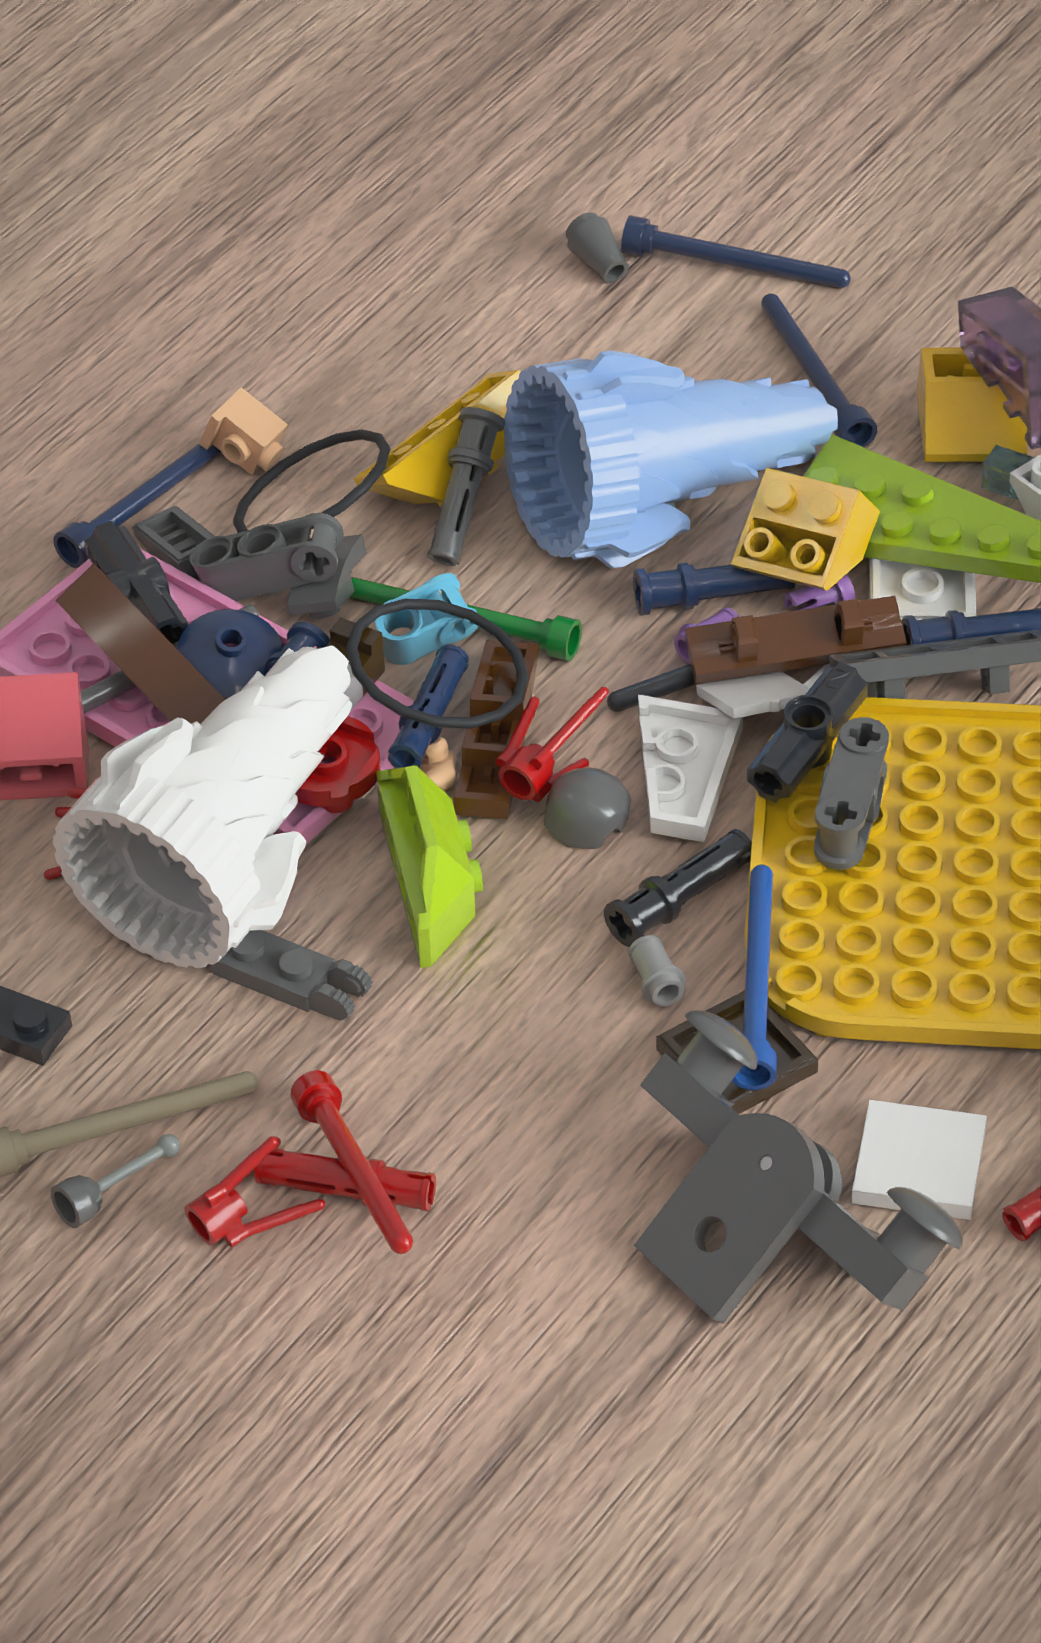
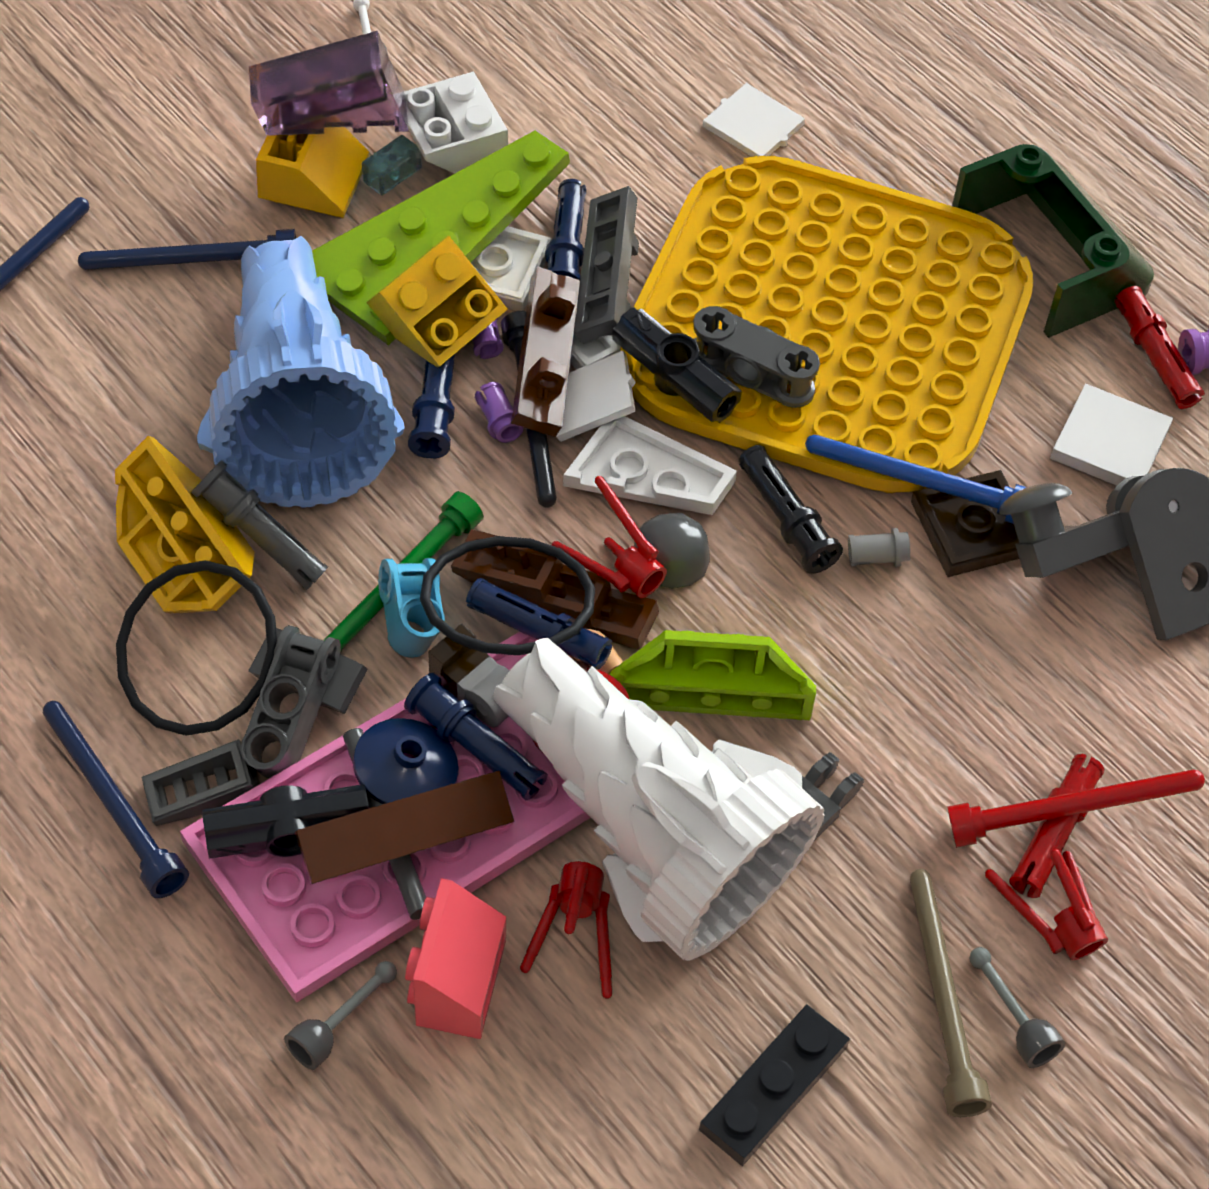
camera: 80 degrees left, 10 degrees up
(246, 432) = (83, 687): light nougat brick -> none

